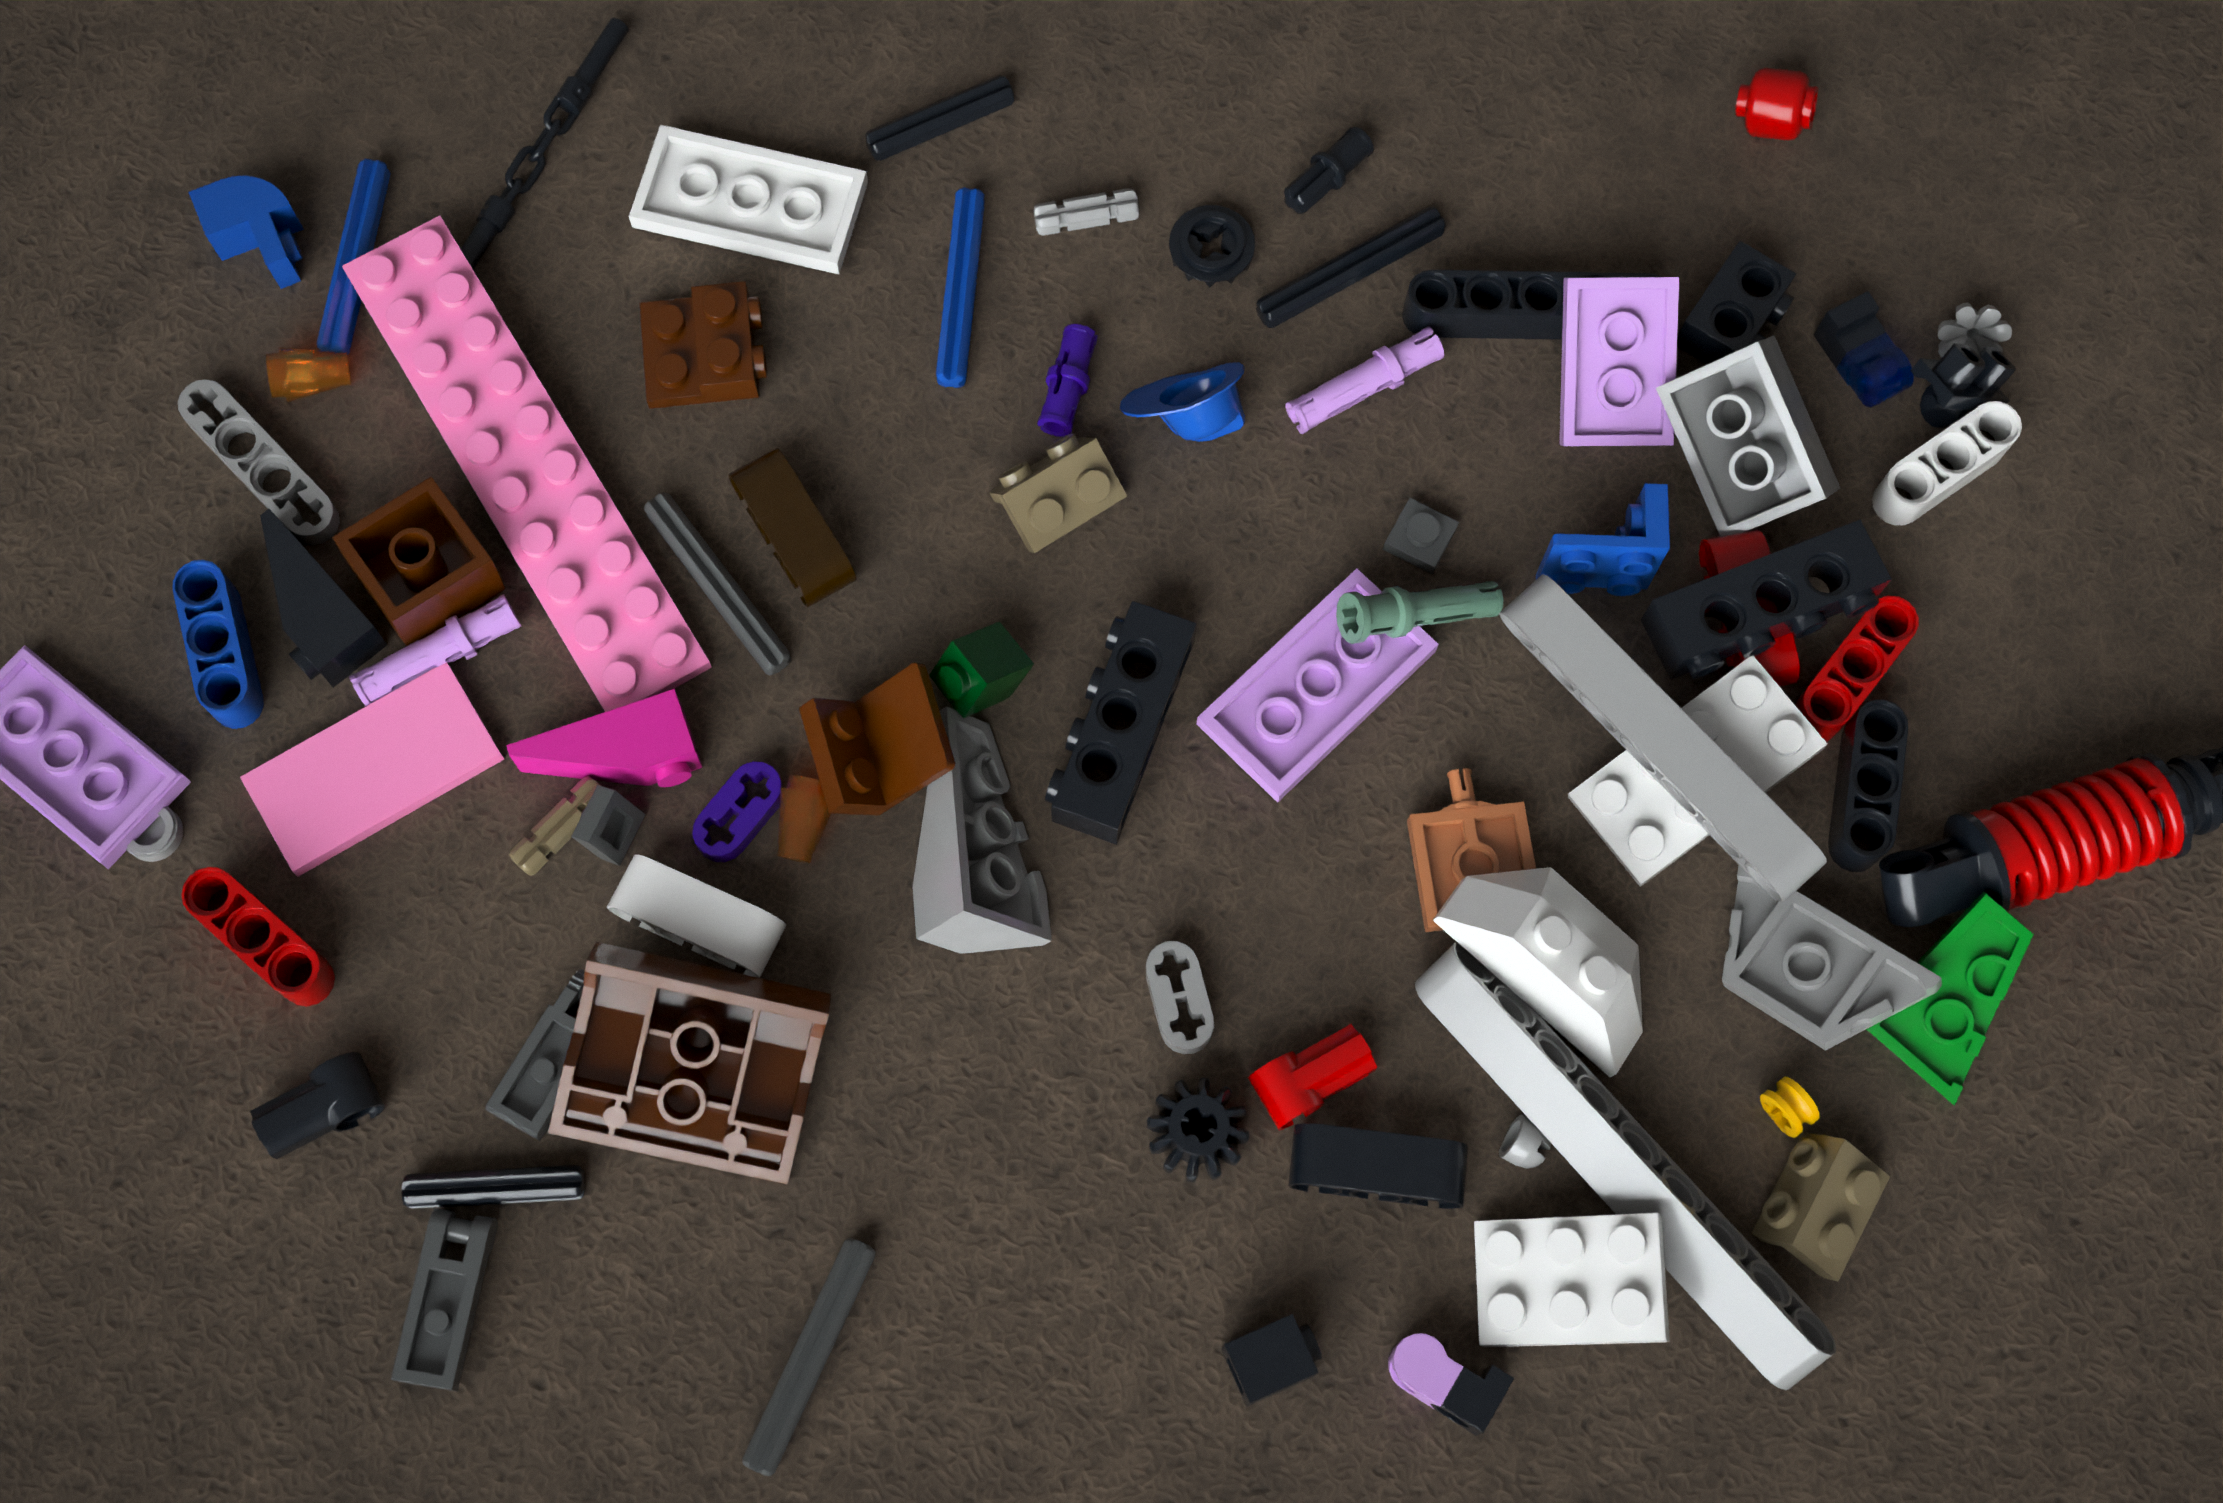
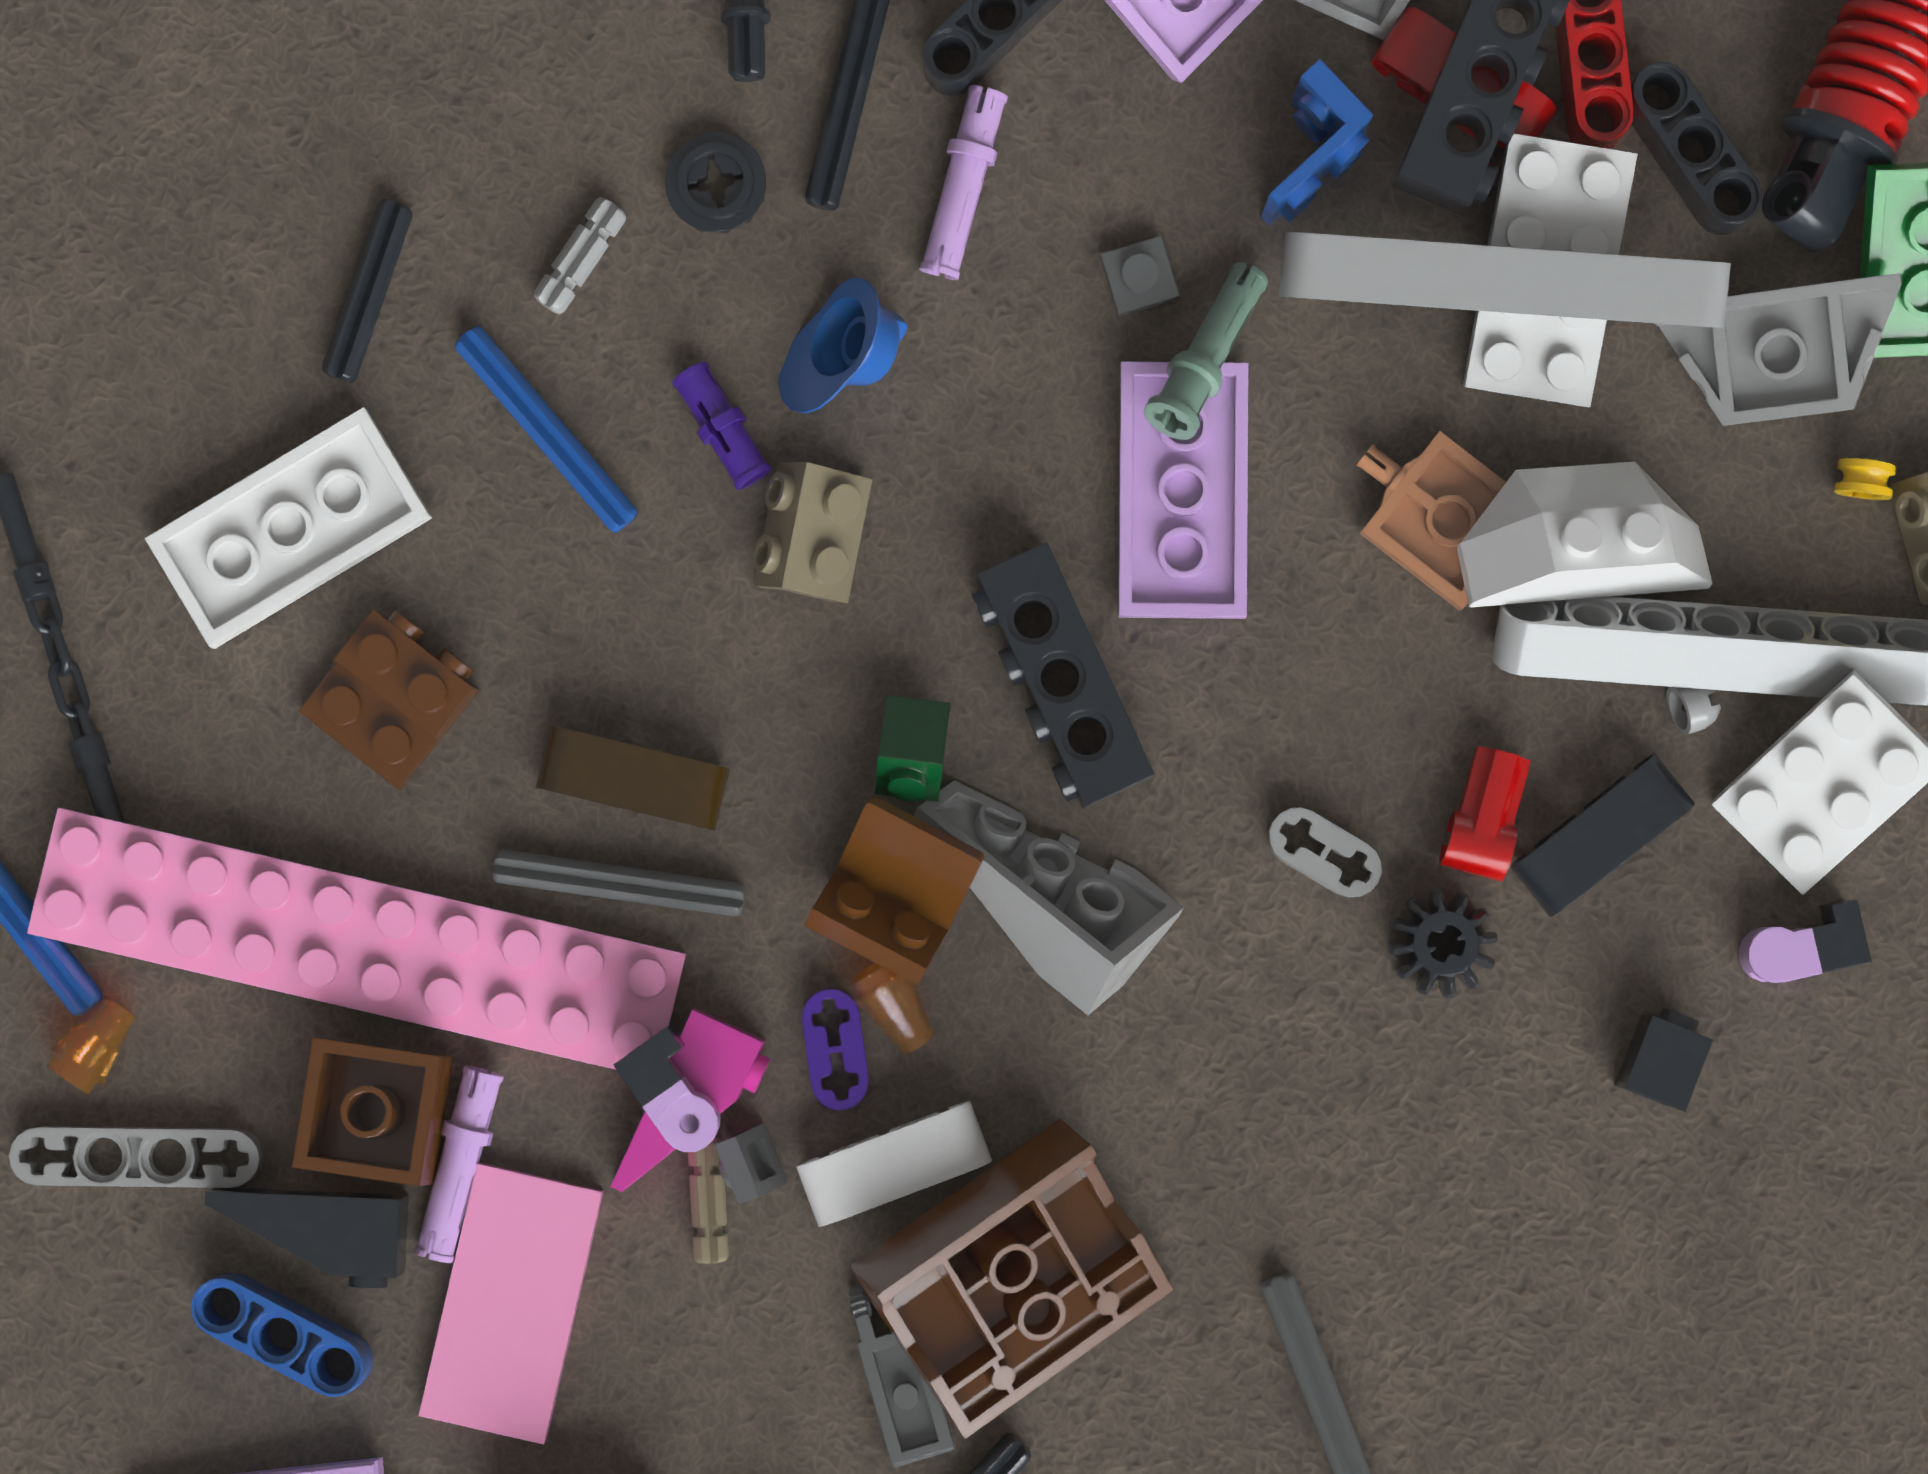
camera: 40 degrees left, 15 degrees up
(601, 715) = (678, 1111): none -> leg

